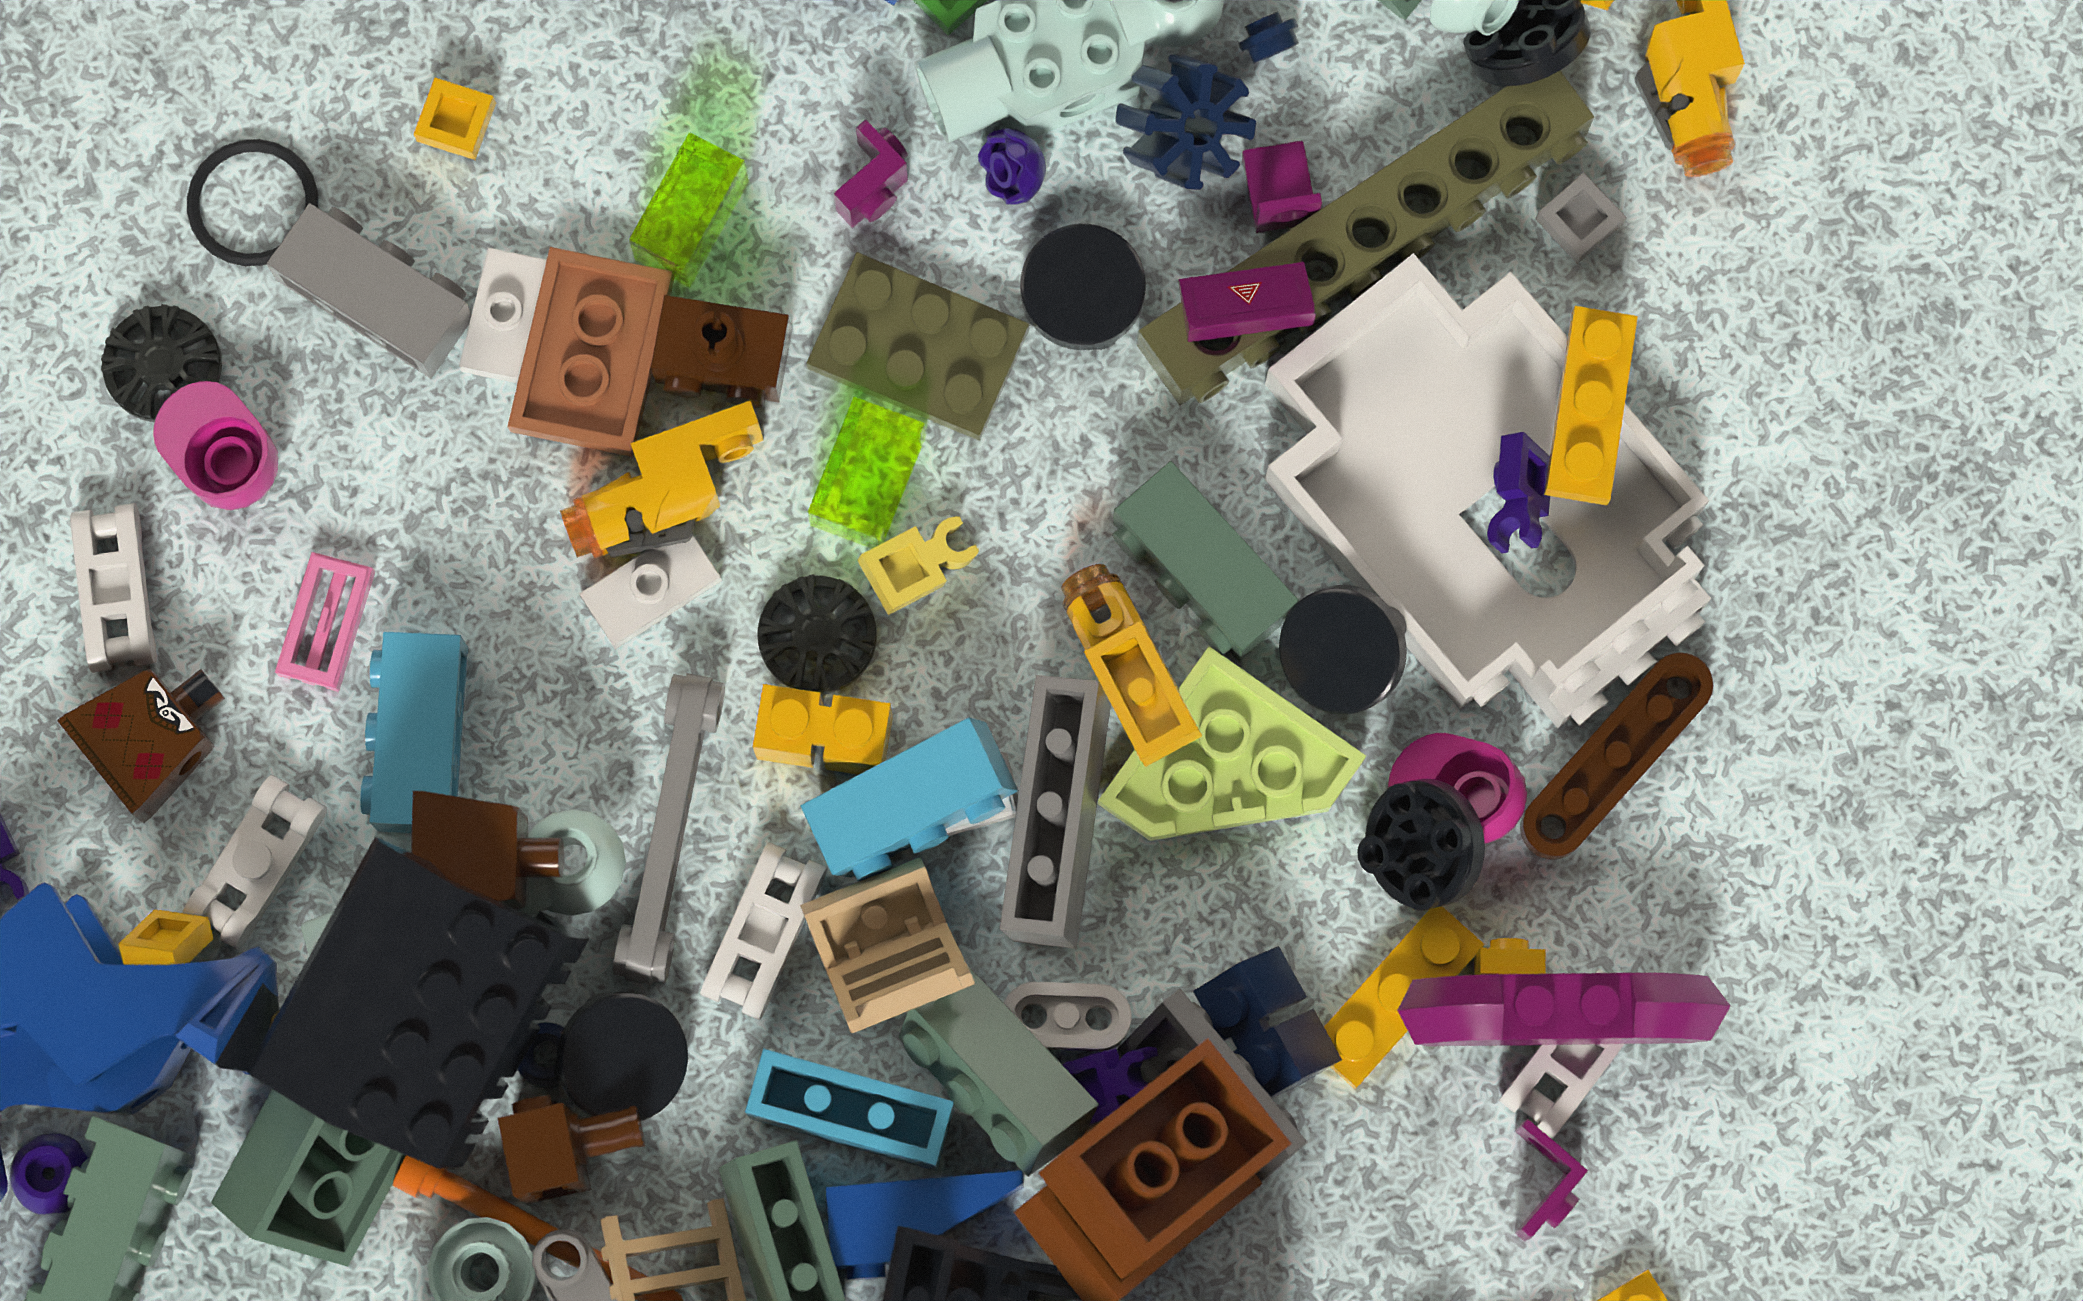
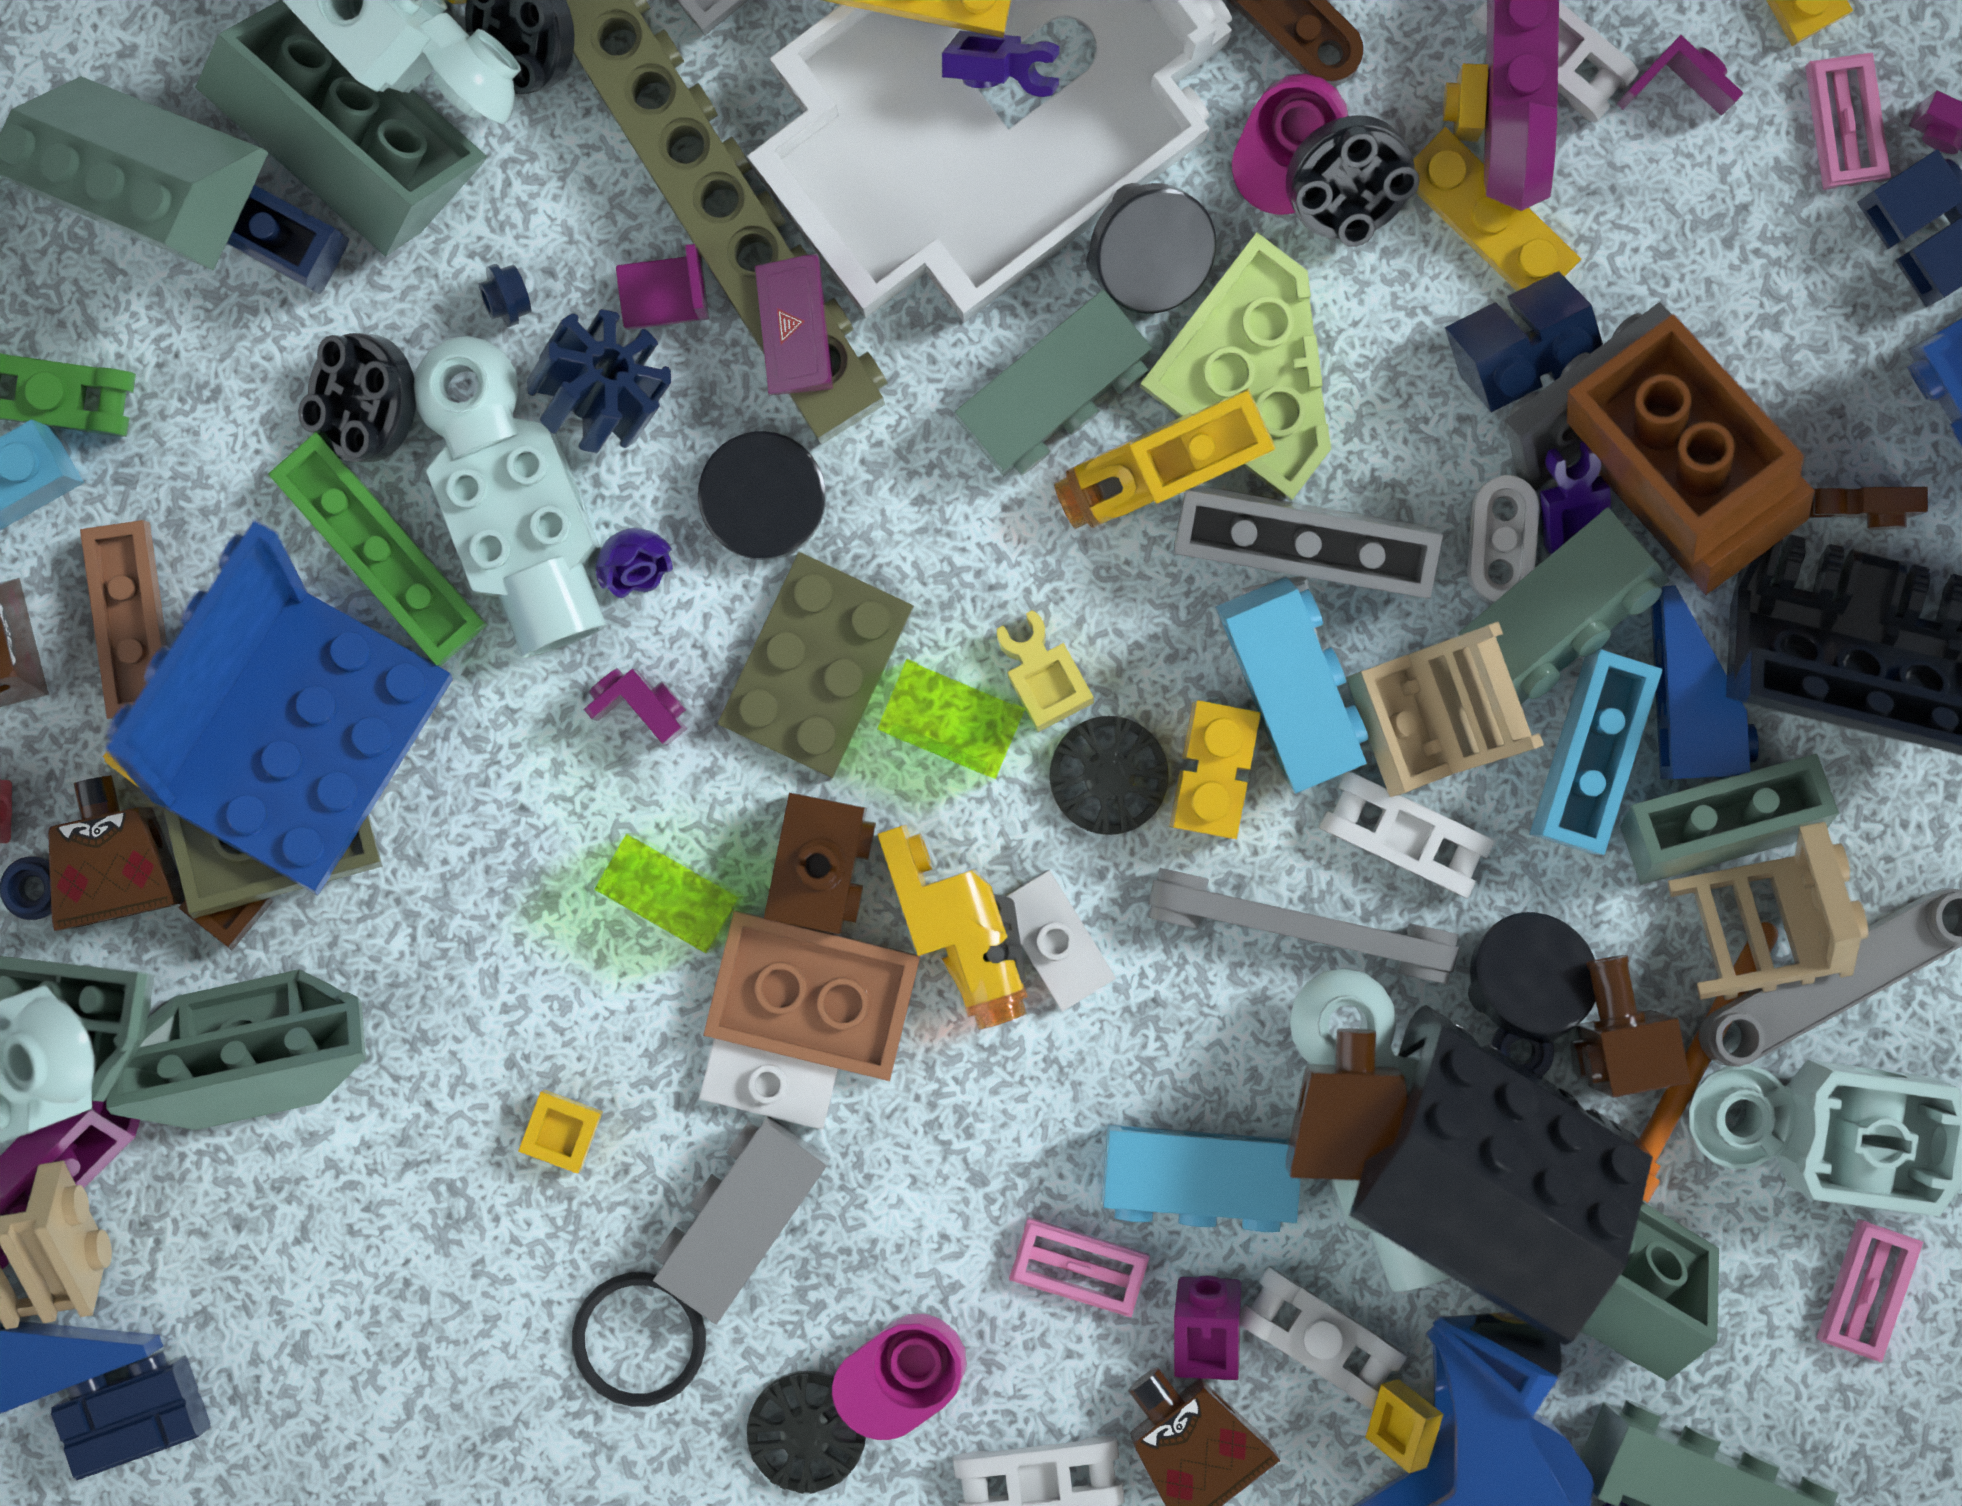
camera: 85 degrees left, 10 degrees up
(264, 745) = (1207, 1328): none -> magenta bracket

